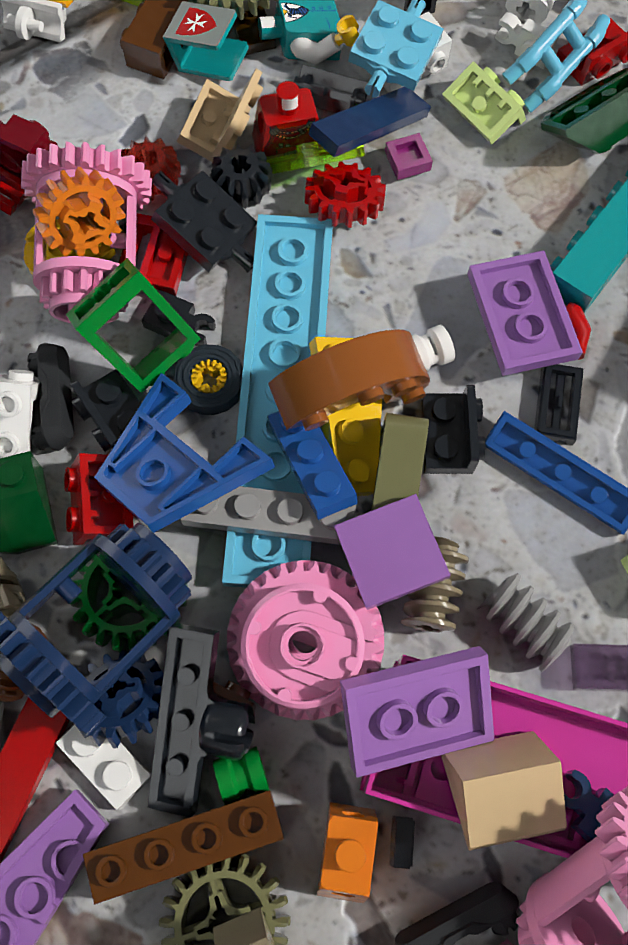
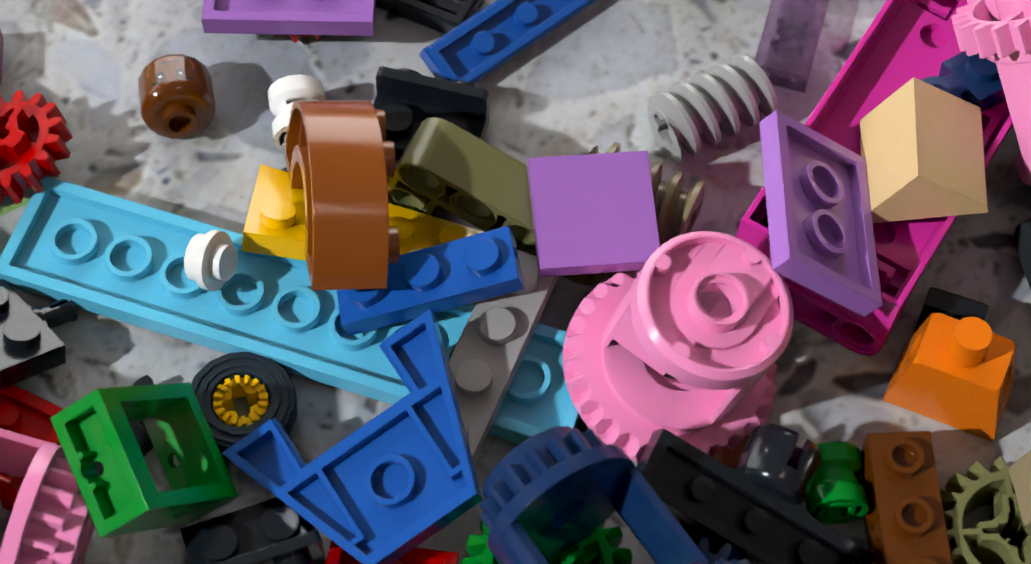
camera: 75 degrees left, 10 degrees down
(291, 324) = (210, 259): none -> white plate
(416, 274) = (177, 92): none -> reddish brown head

